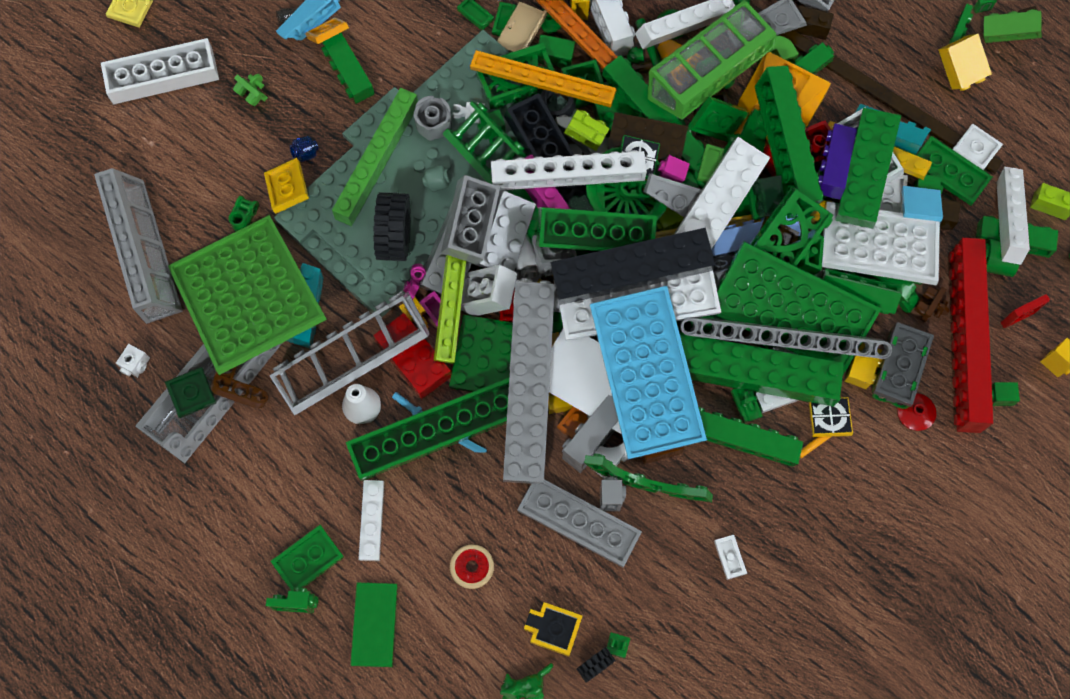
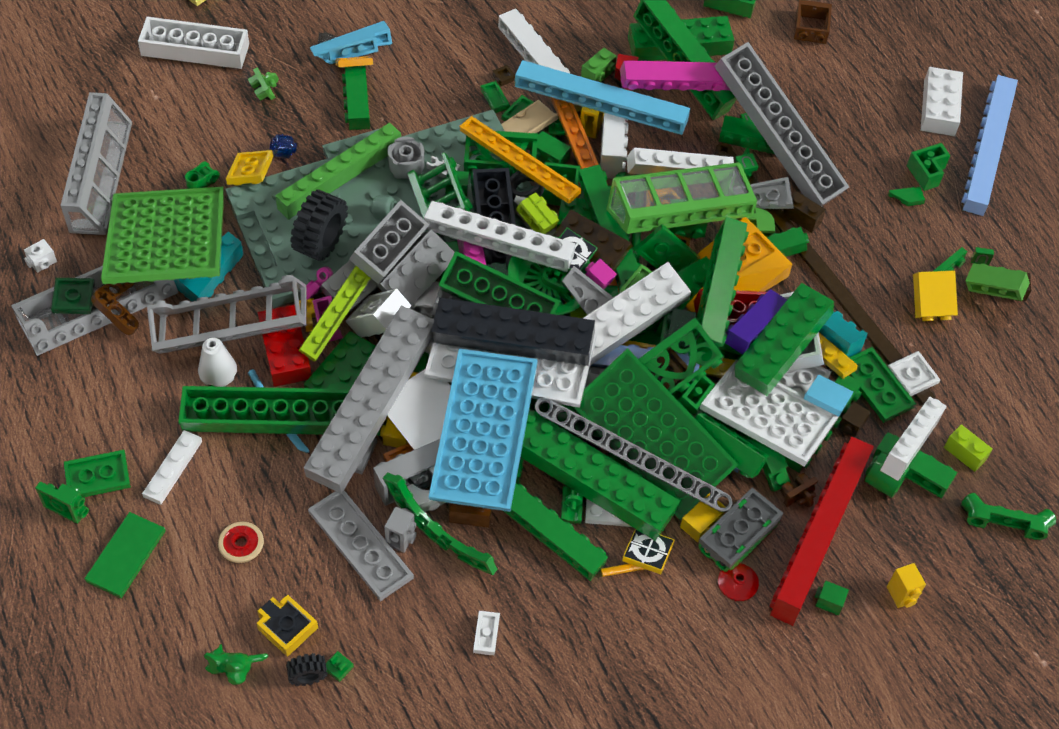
camera: 20 degrees right, 15 degrees down
(1025, 311) = (888, 529): red tile -> none

